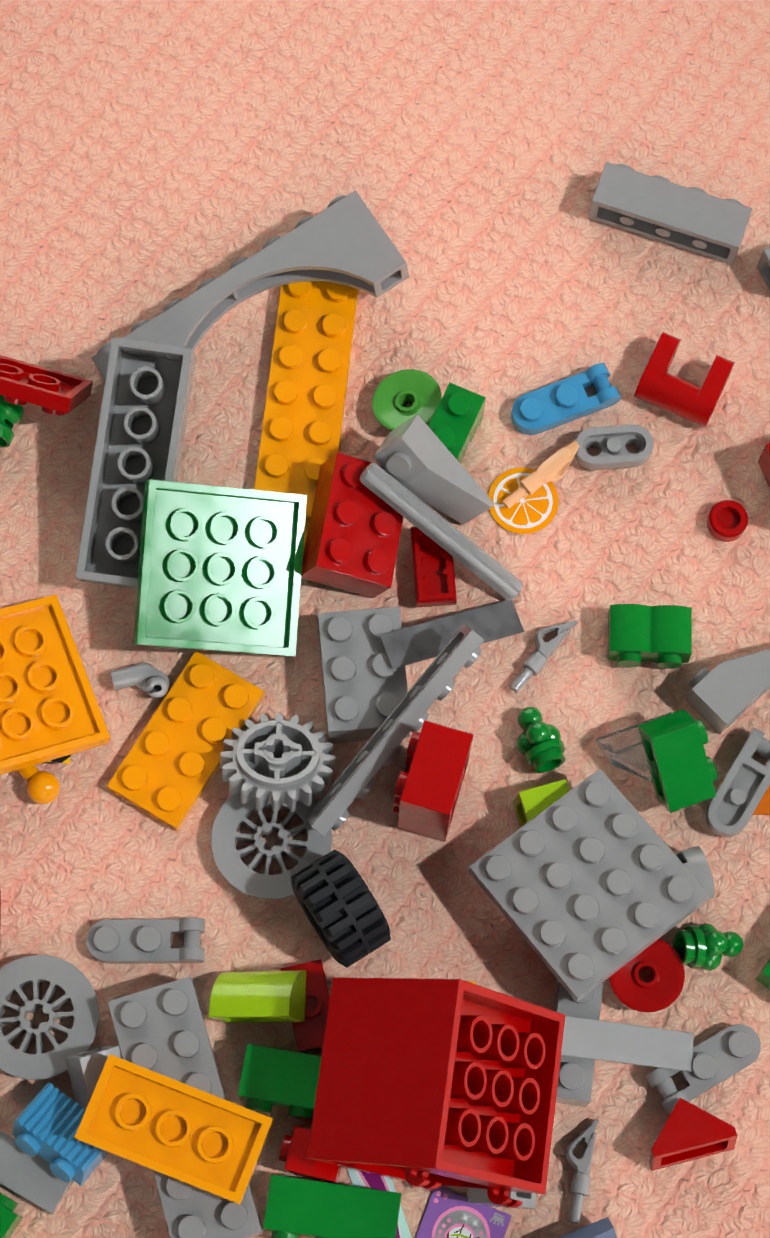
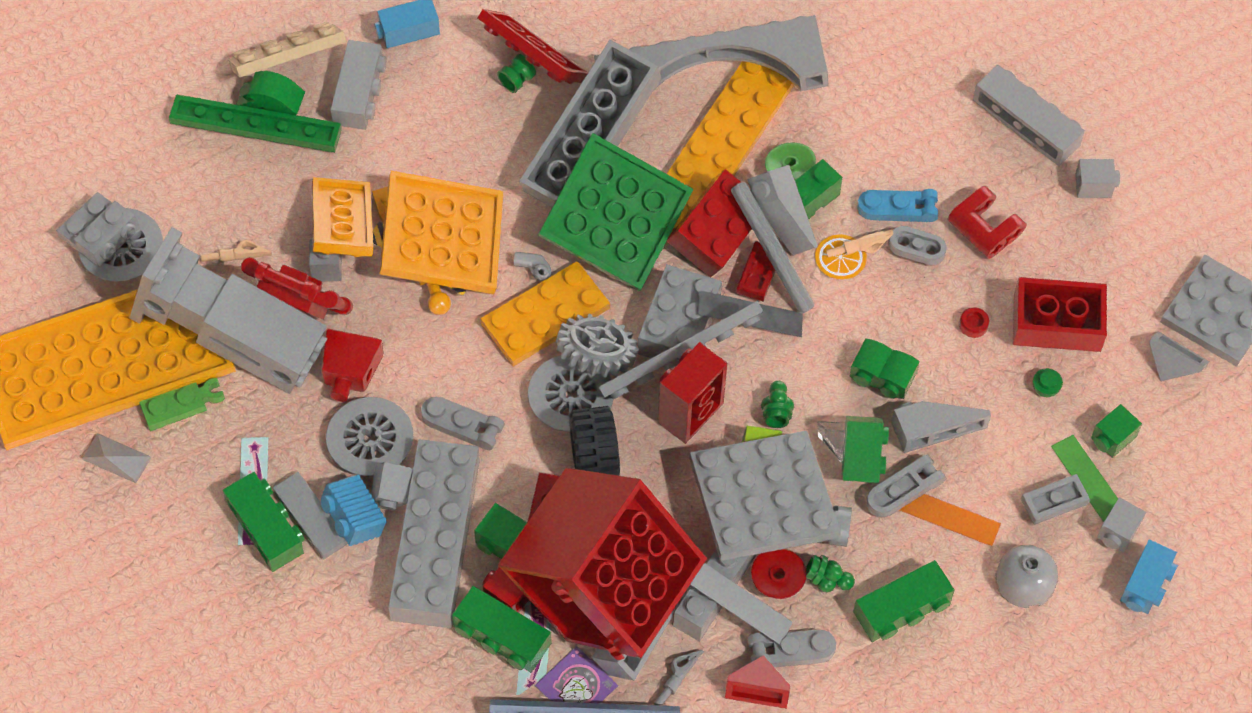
camera: 25 degrees right, 10 degrees down
(174, 1129) = (424, 525): light orange plate -> none
(259, 997) = (516, 482): lime brick -> none
(538, 659) = (808, 353): light grey hand -> none

